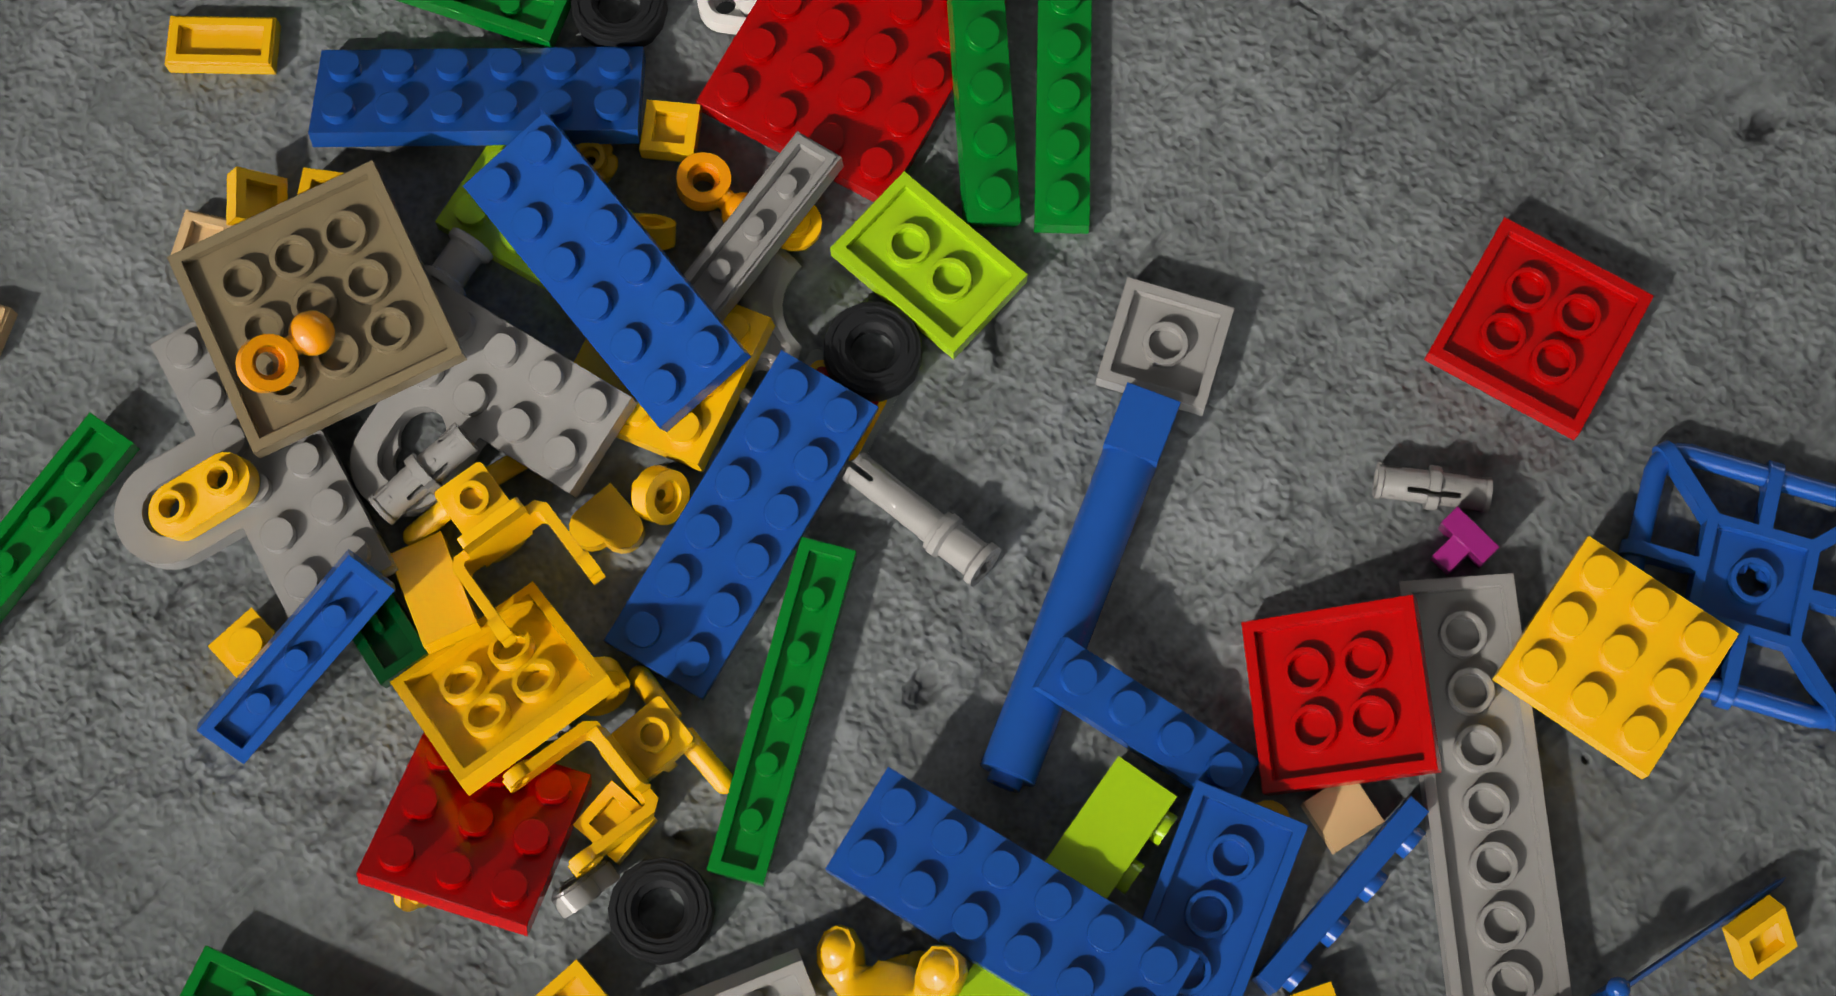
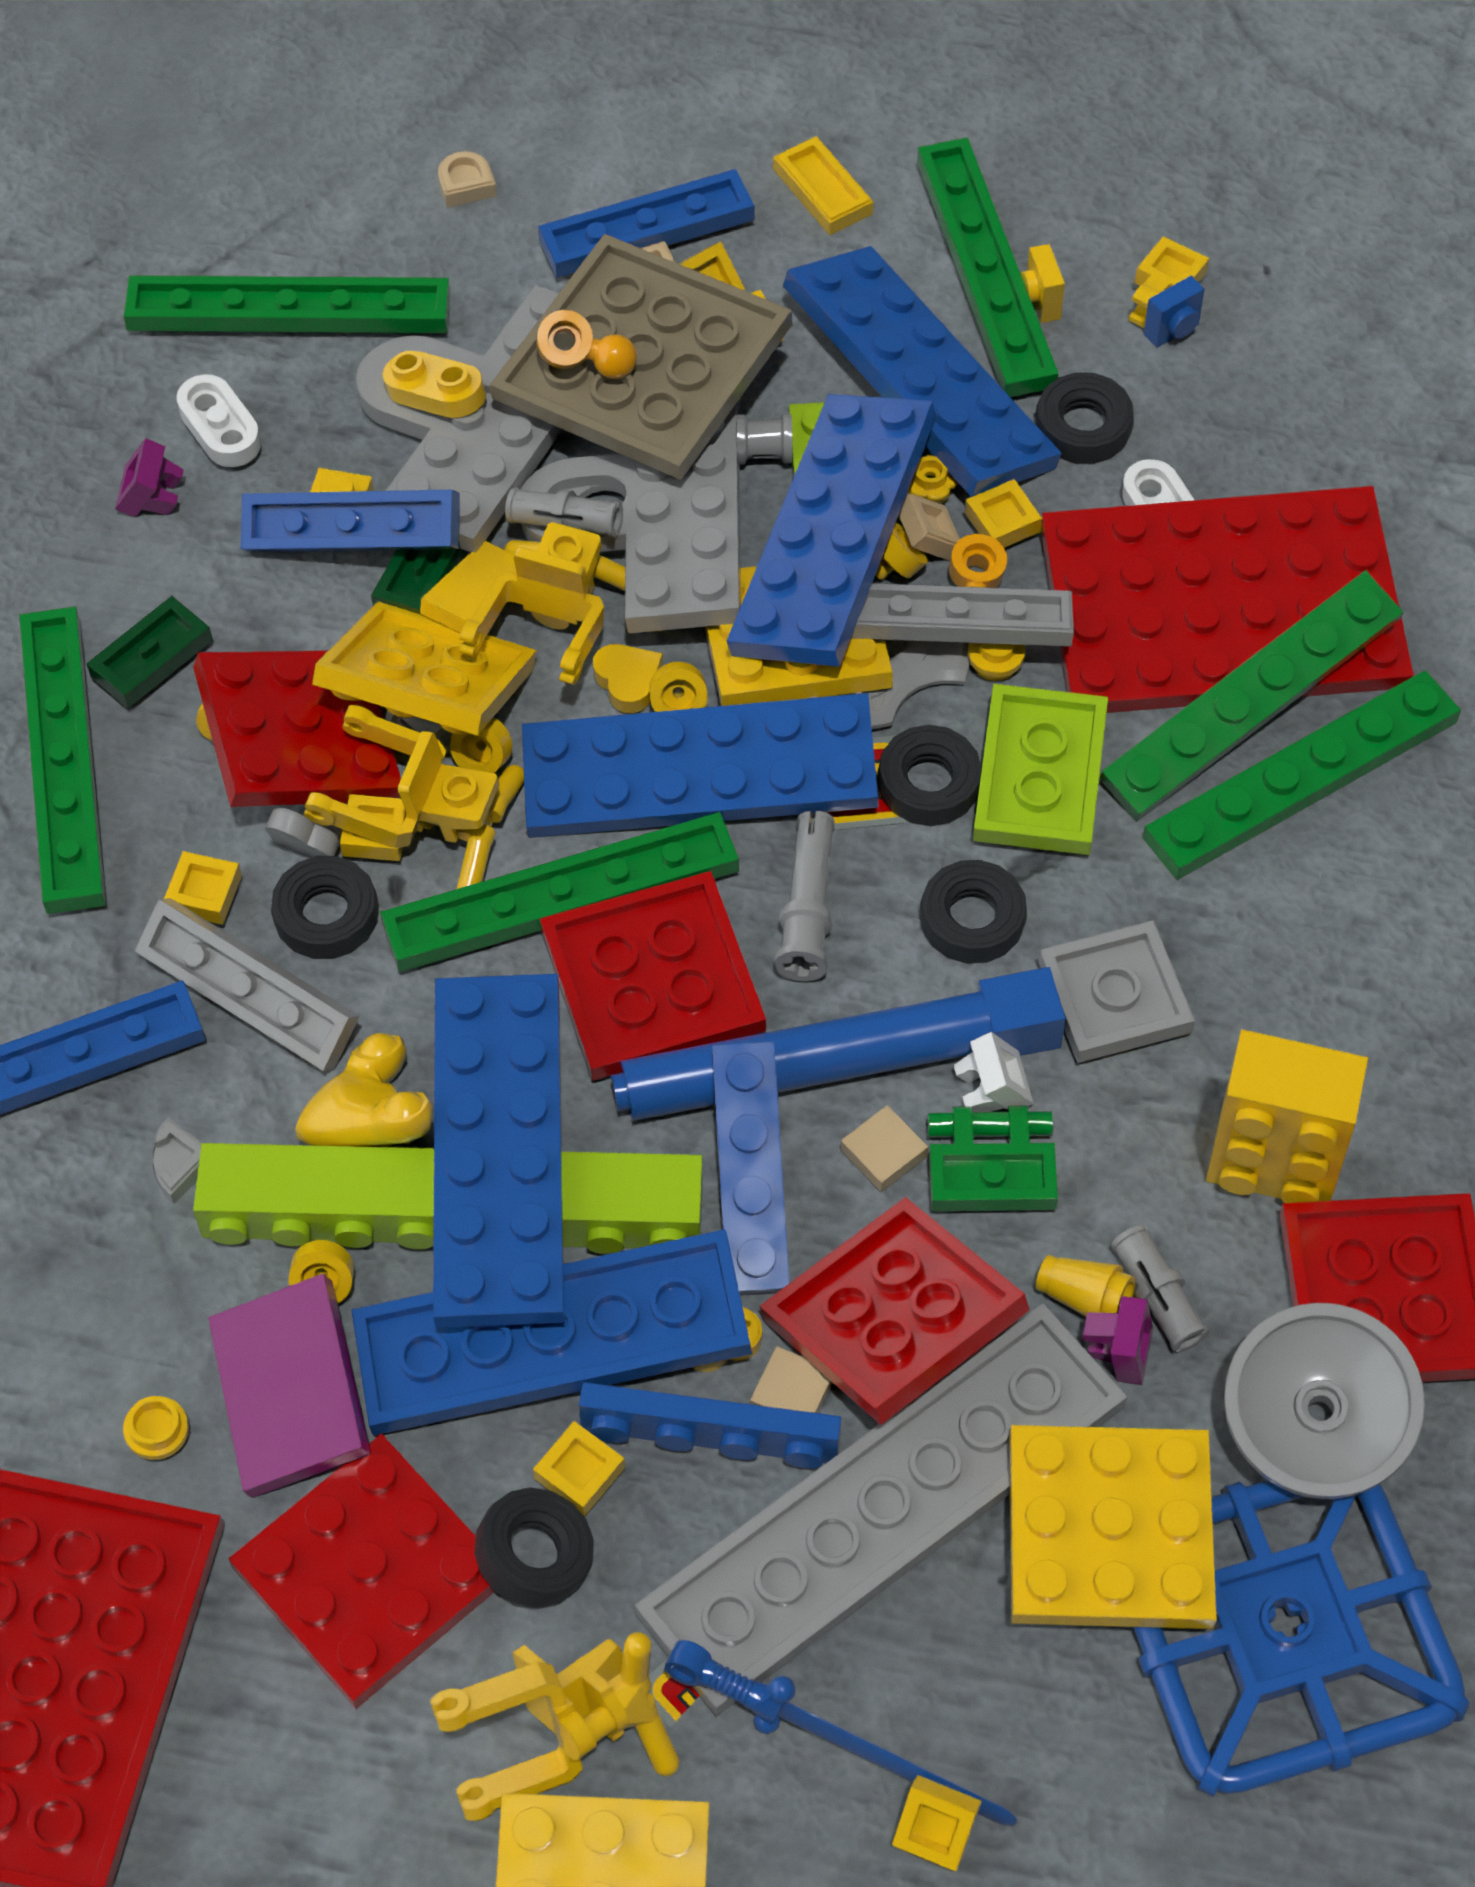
camera: 55 degrees right, 15 degrees down
(93, 701) = (226, 428): none -> white plate
(106, 806) = (143, 480): none -> magenta tile
(154, 212) = (653, 218): none -> blue plate
(296, 907) = (149, 651): none -> dark green plate
(644, 193) = (928, 526): none -> tan tile
(911, 686) = (652, 973): none -> red plate
(1023, 369) = (976, 944): none -> black tyre
(1181, 480) = (1000, 1073): none -> white tile
(1181, 609) = (884, 1148): none -> tan tile
(1262, 544) = (993, 1174): none -> green plate
(1391, 305) = (1286, 1119): none -> yellow brick
(1401, 539) = (1085, 1284): none -> yellow cone
(1654, 433) = (1328, 1358): none -> light grey dish

